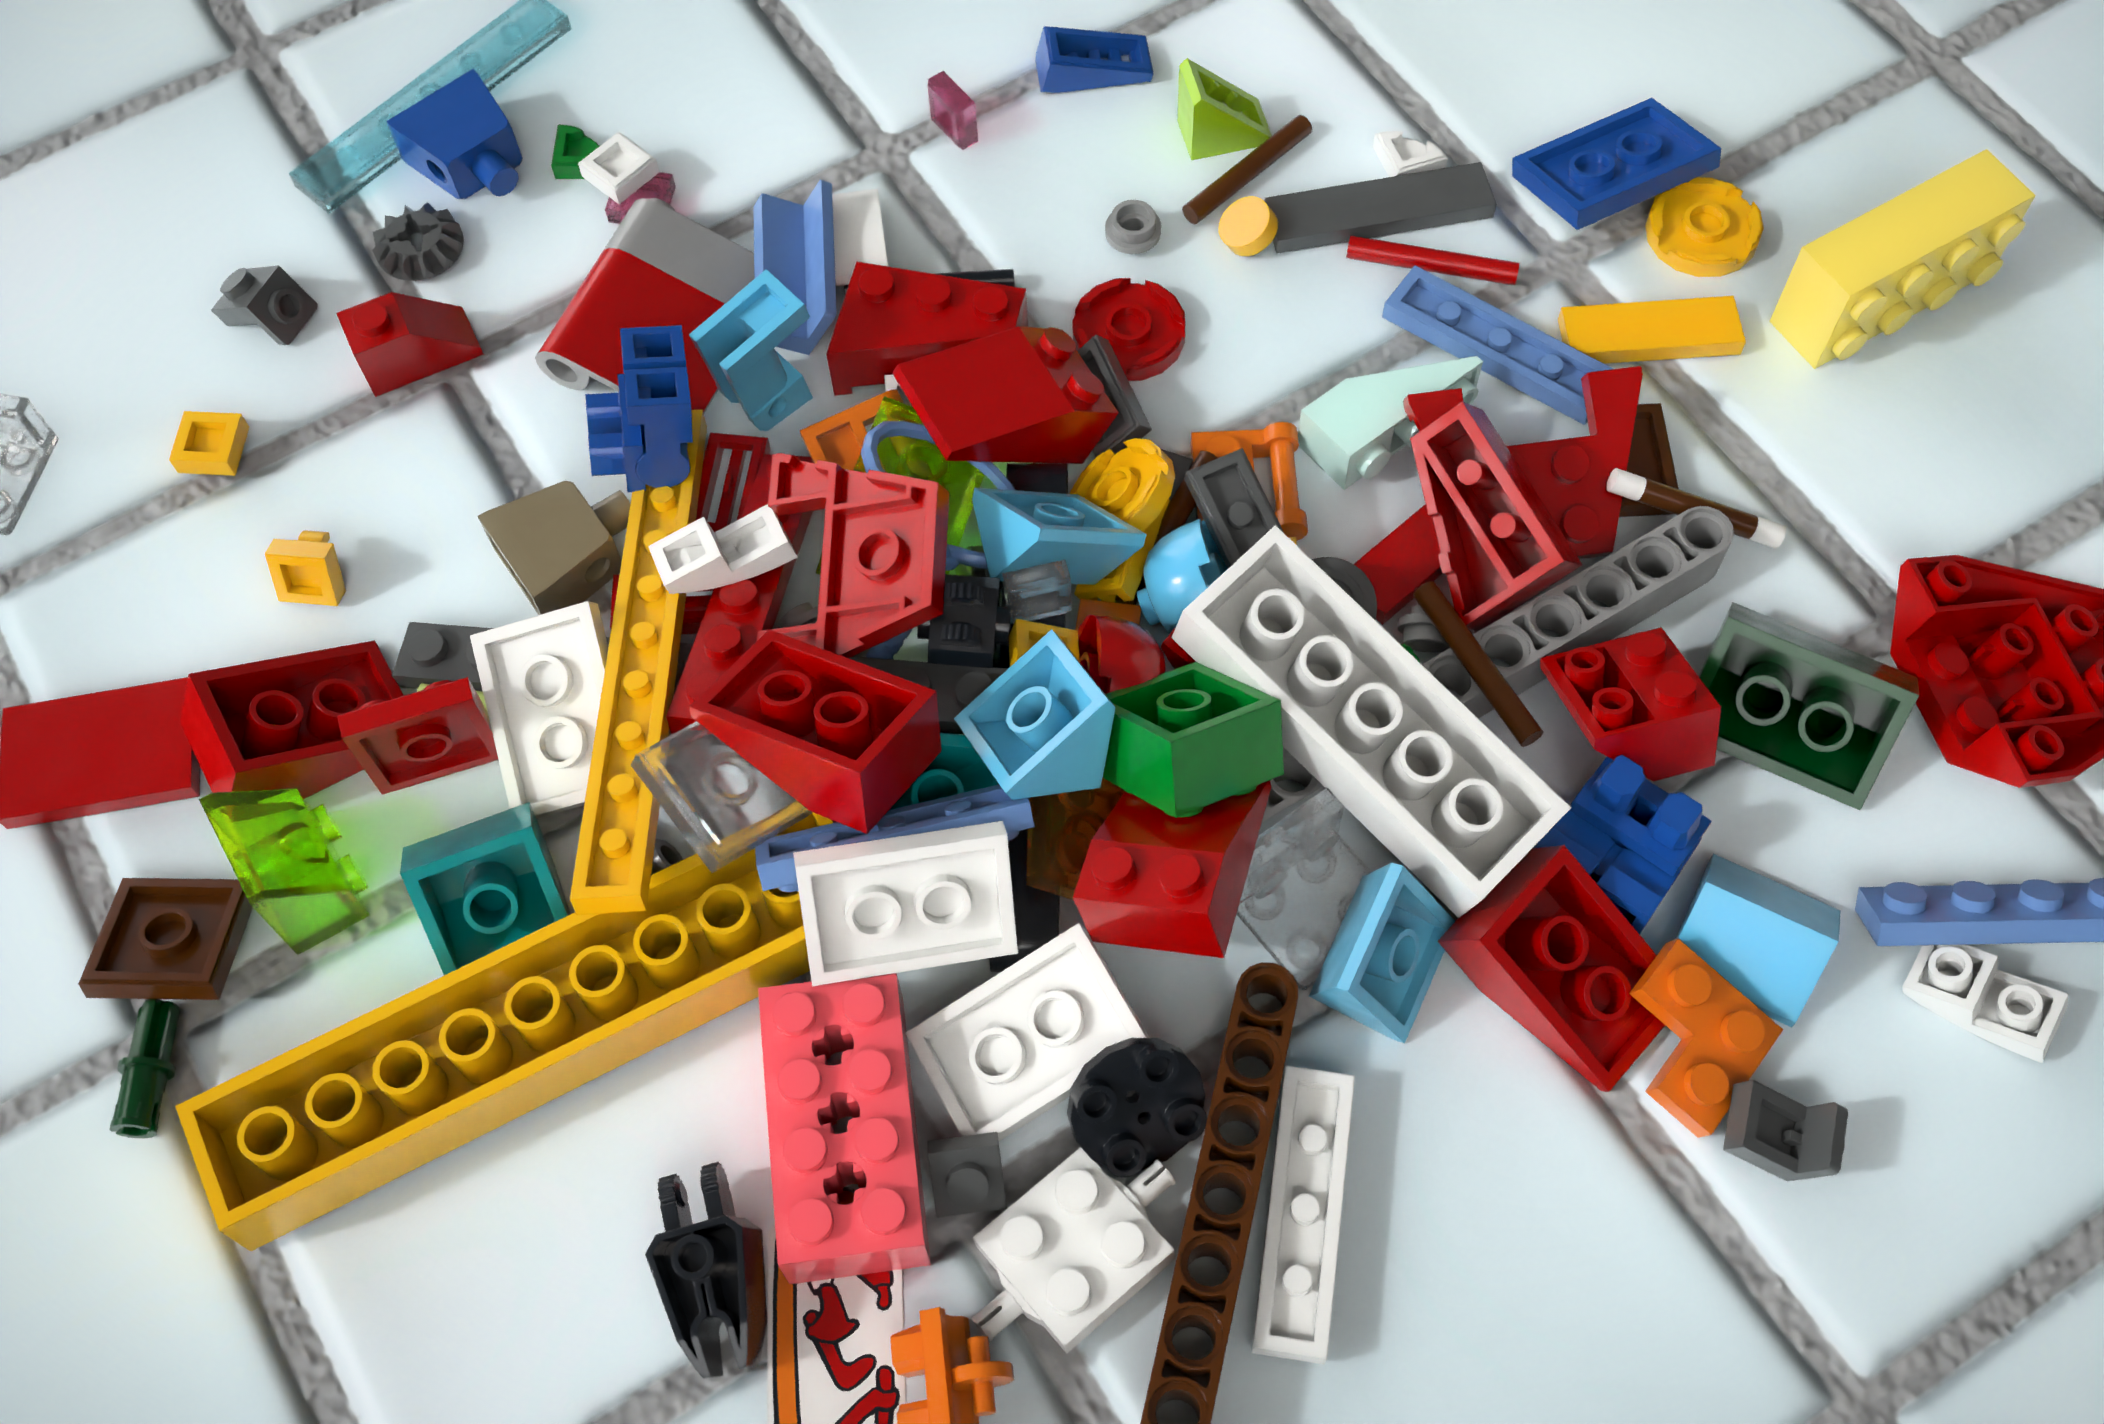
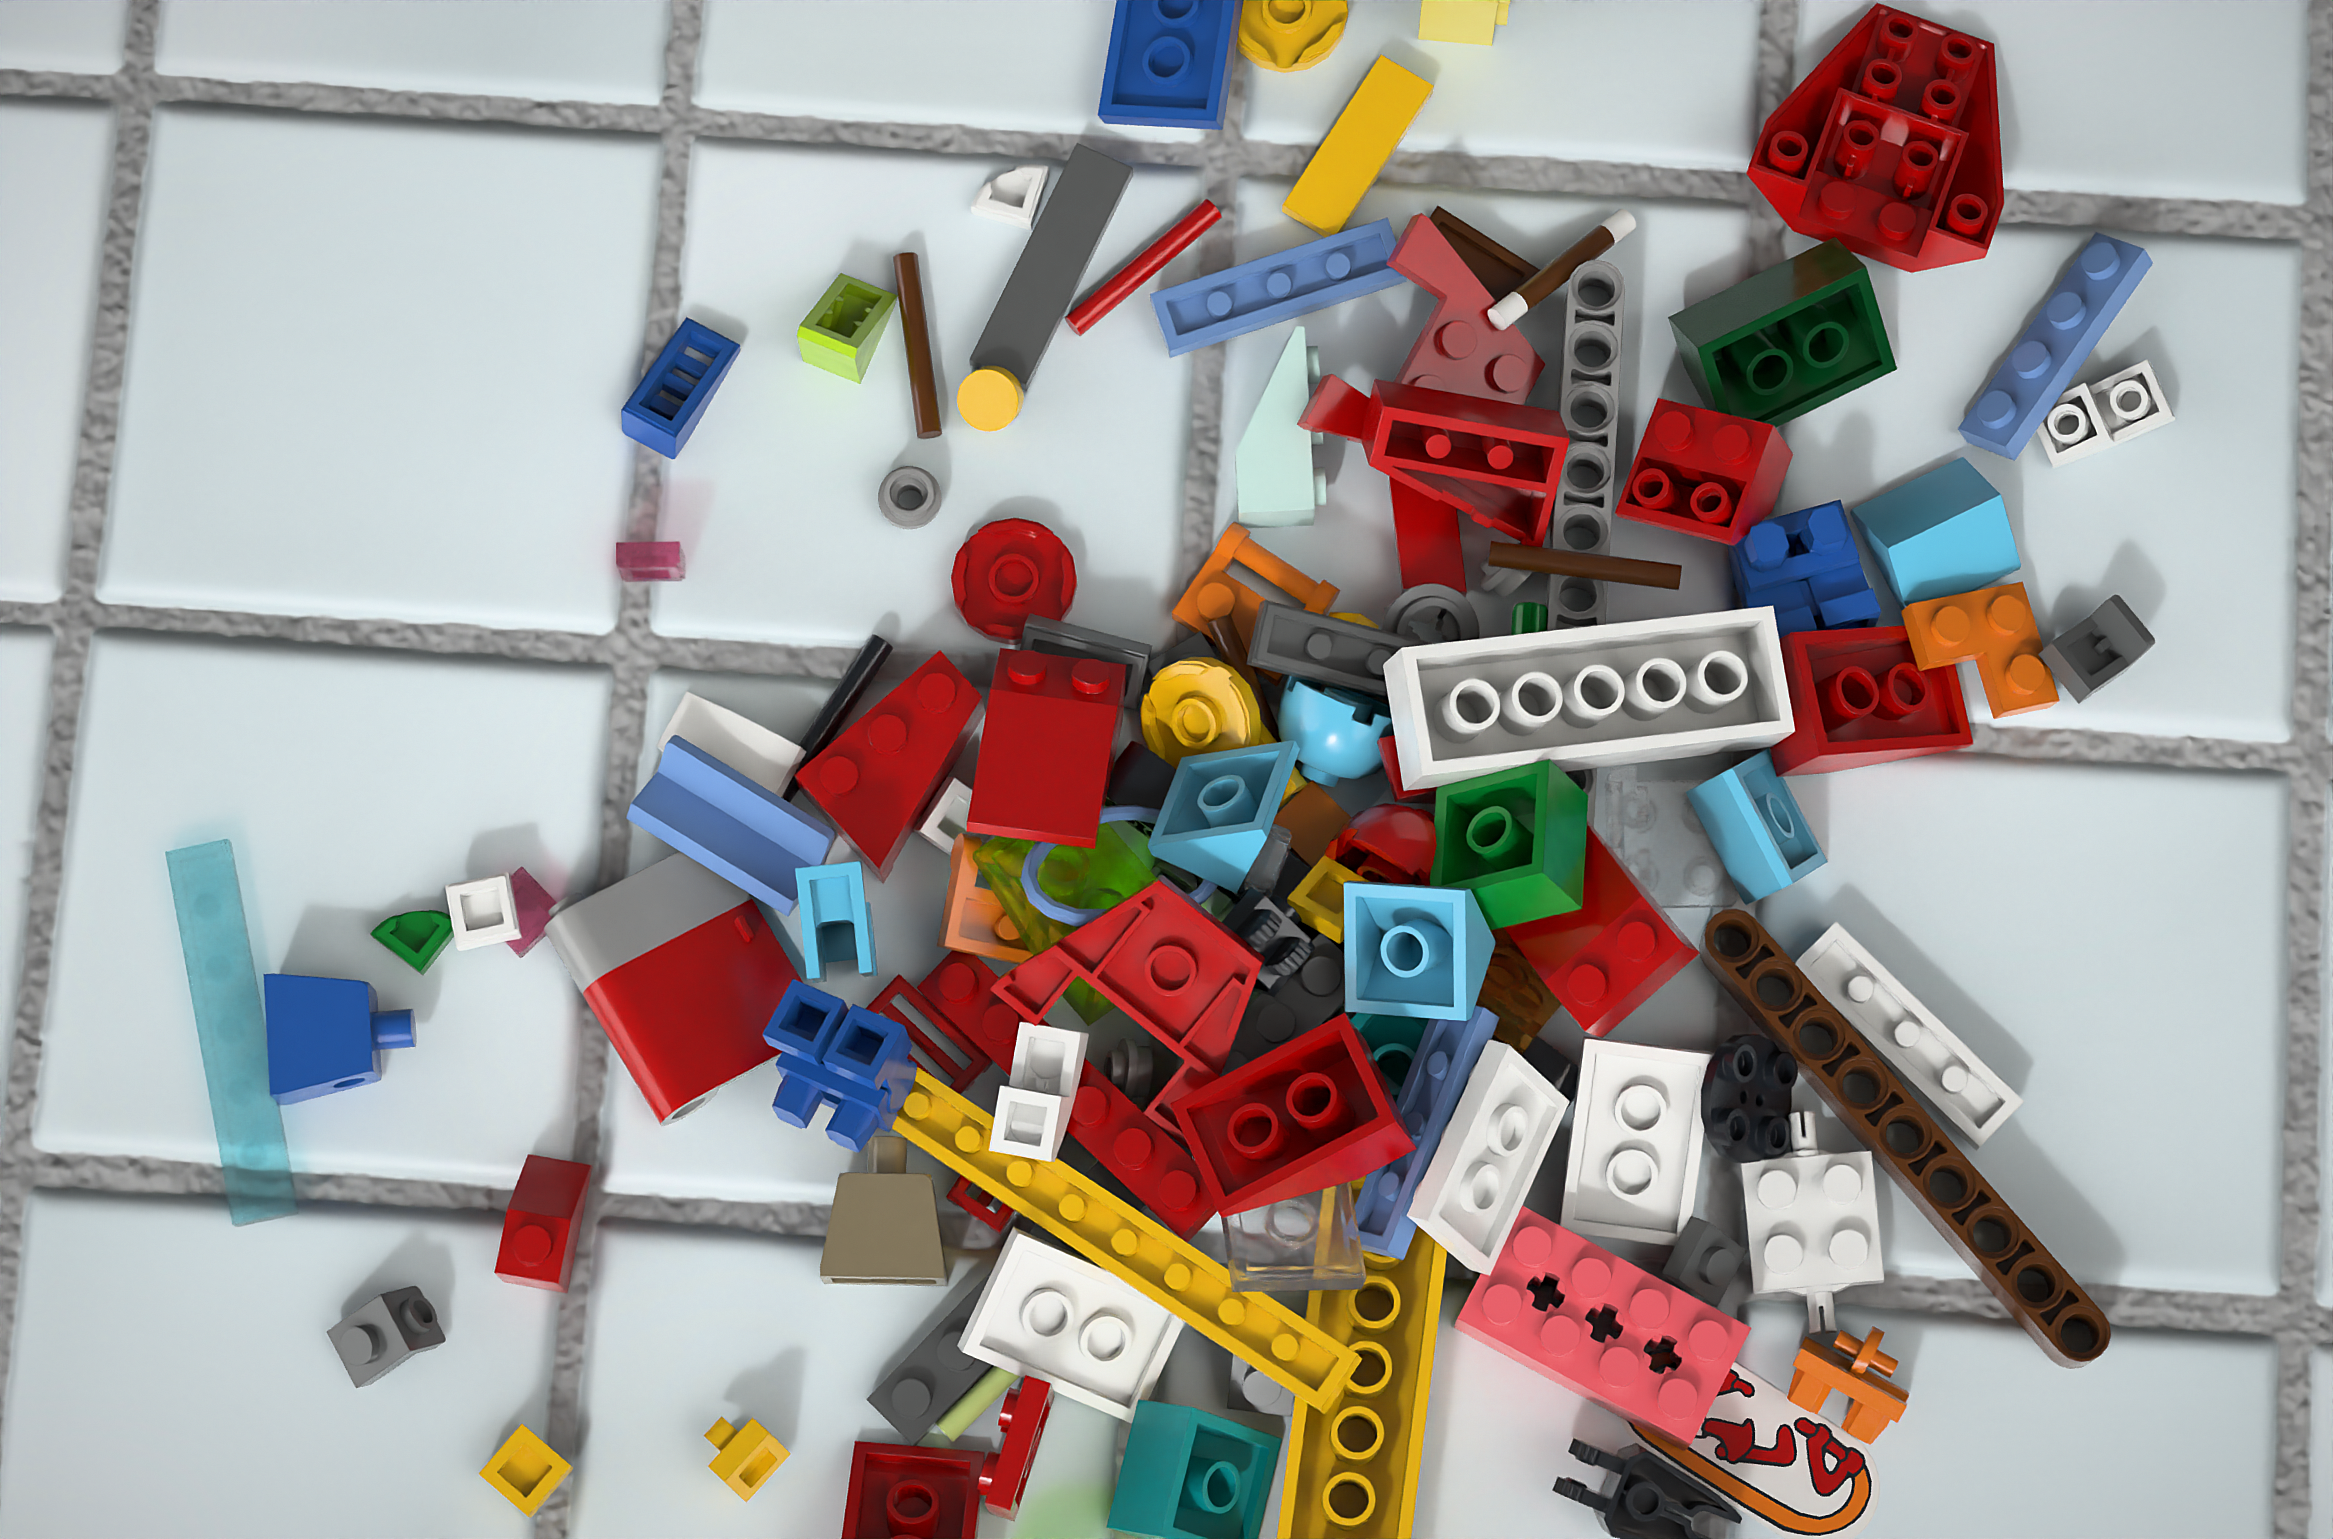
camera: 55 degrees left, 15 degrees up
(440, 246) = (429, 1175): dark grey gear -> none

